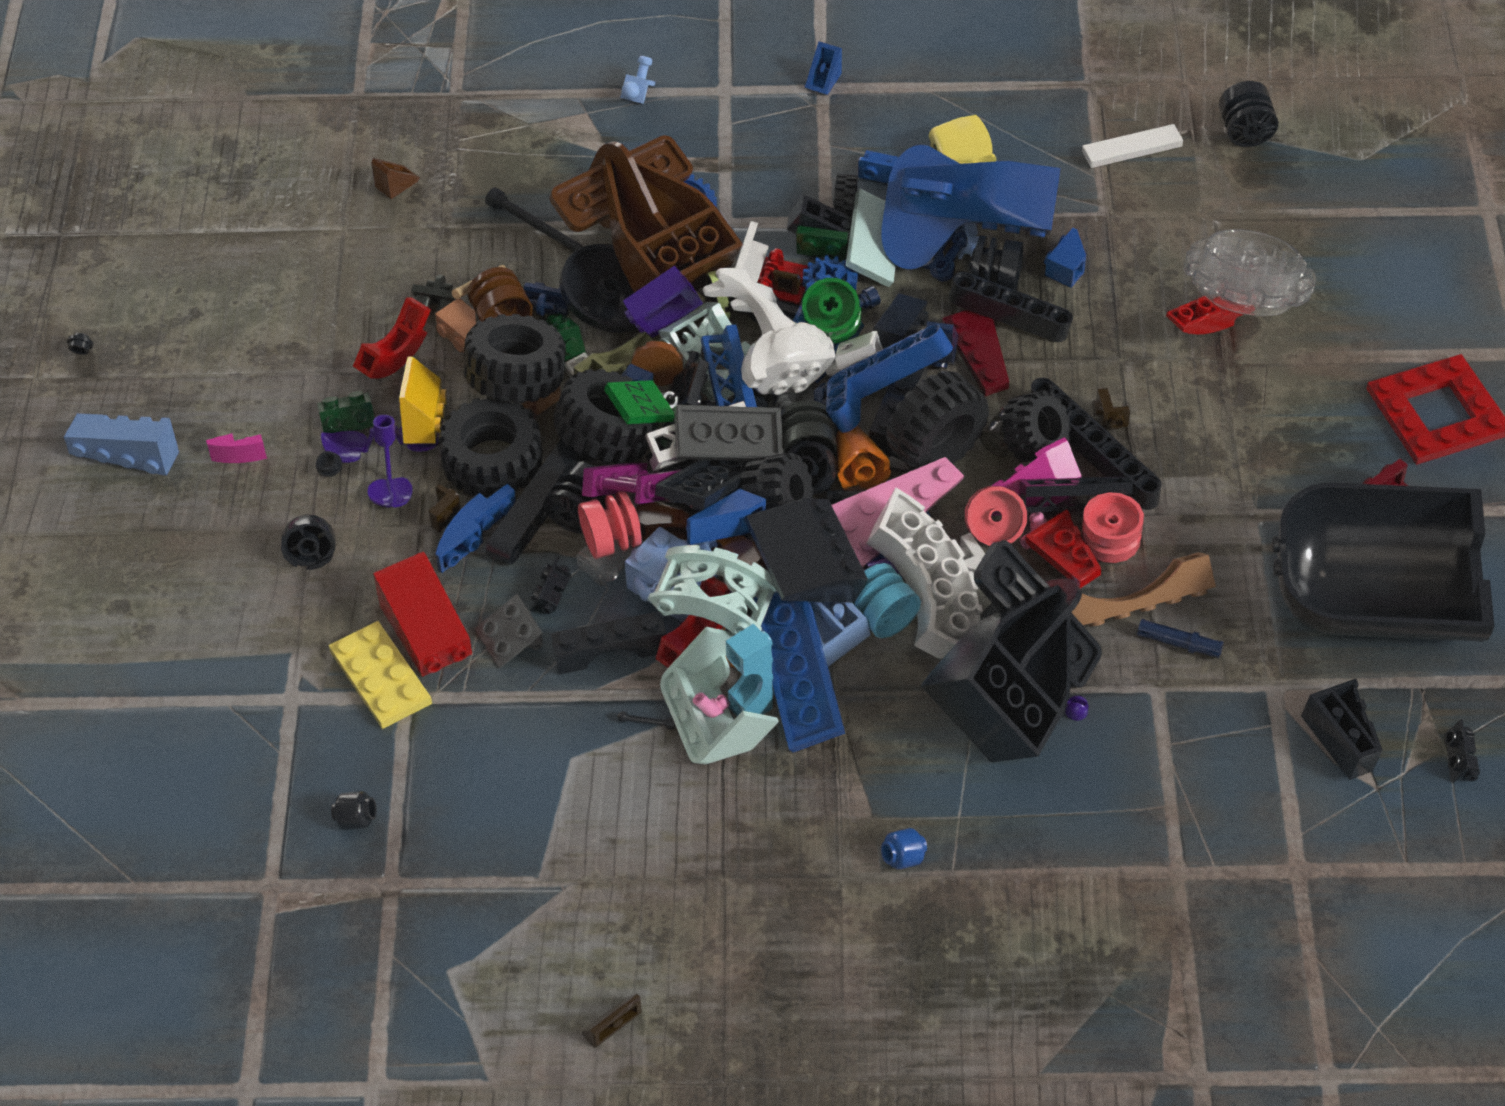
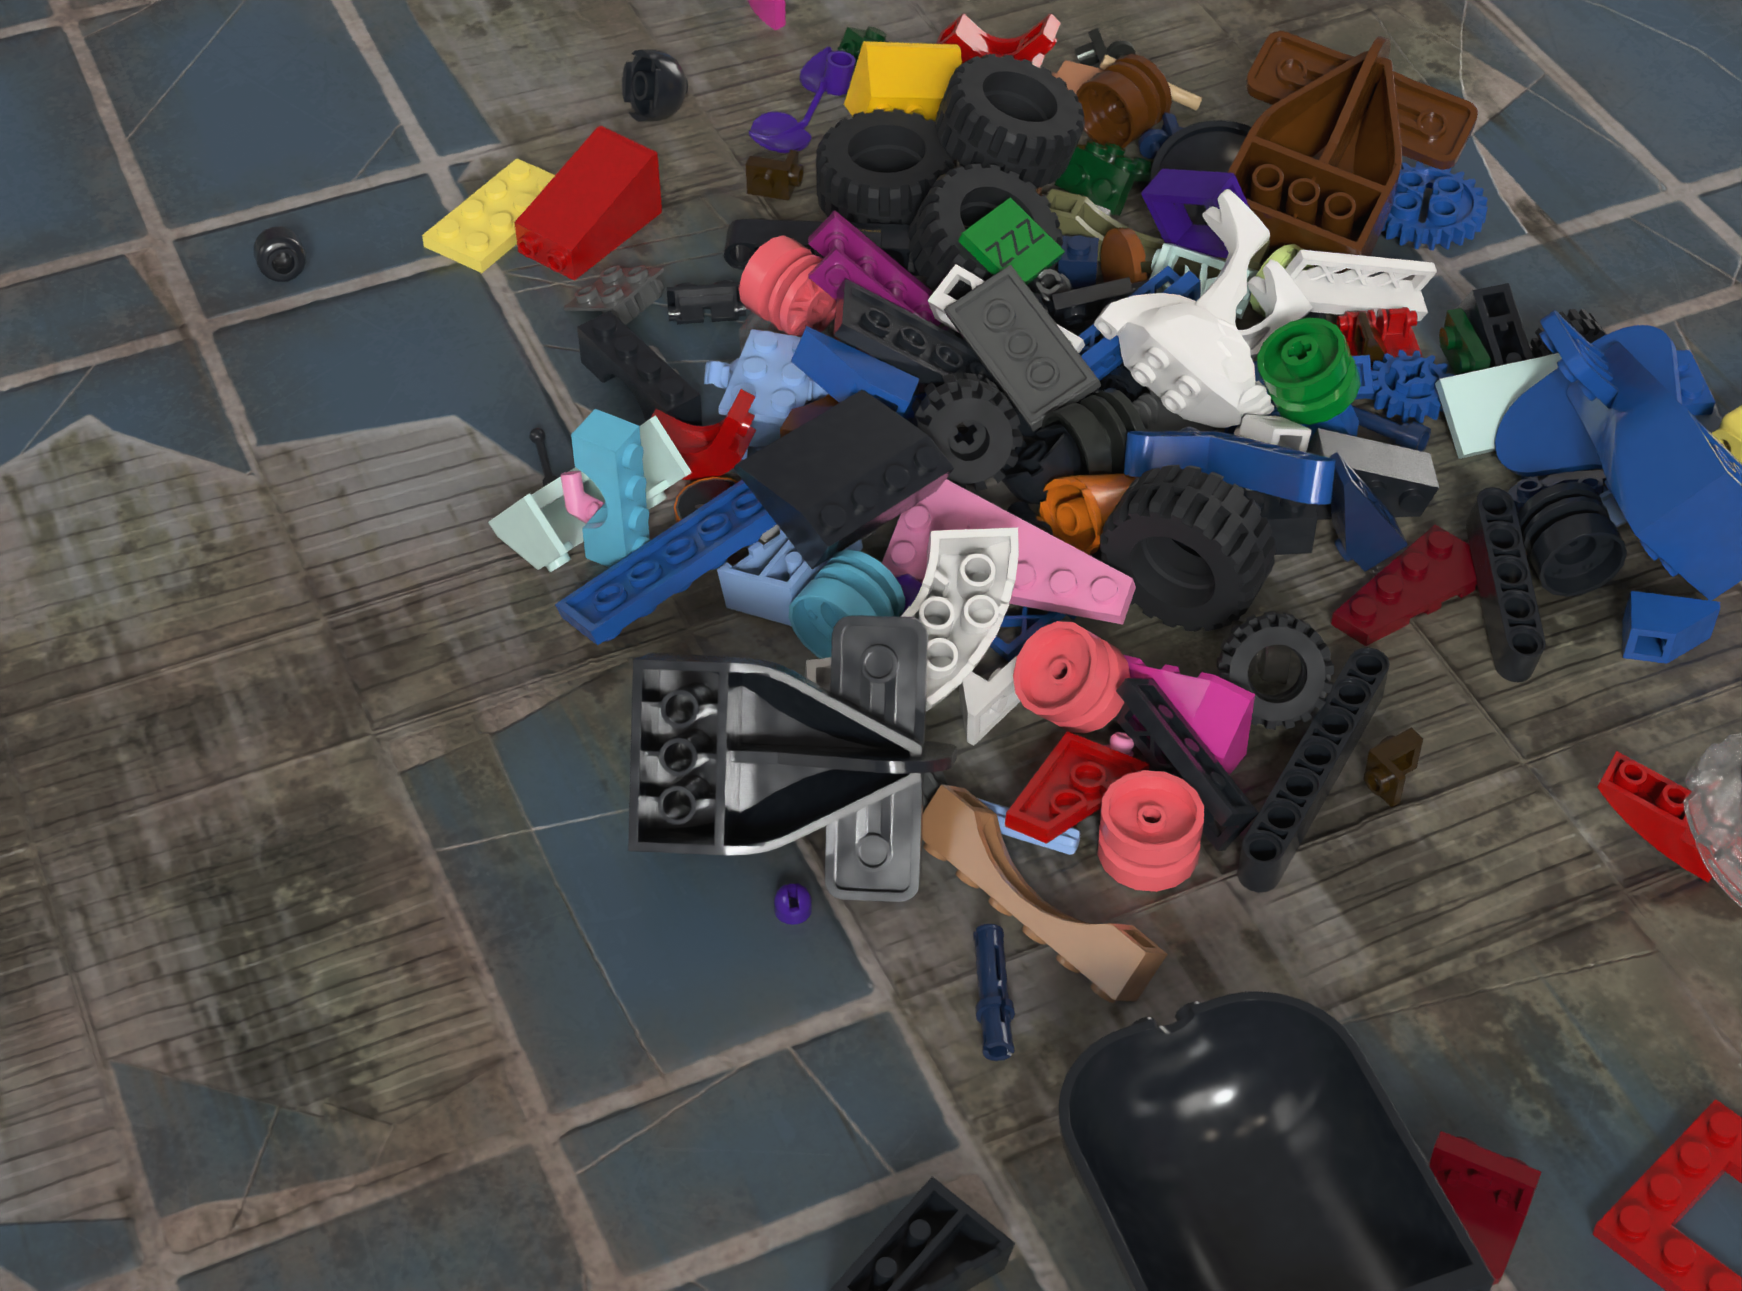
camera: 65 degrees right, 5 degrees down
(328, 464) = (787, 69): black plate -> none
(466, 528) = (732, 199): blue slope -> none
(613, 1020) = (51, 576): dark brown slope -> none
(636, 86) = (1608, 104): light blue piece -> none
(700, 565) = (702, 370): light aqua fence -> none
(903, 848) = (432, 773): blue head -> none

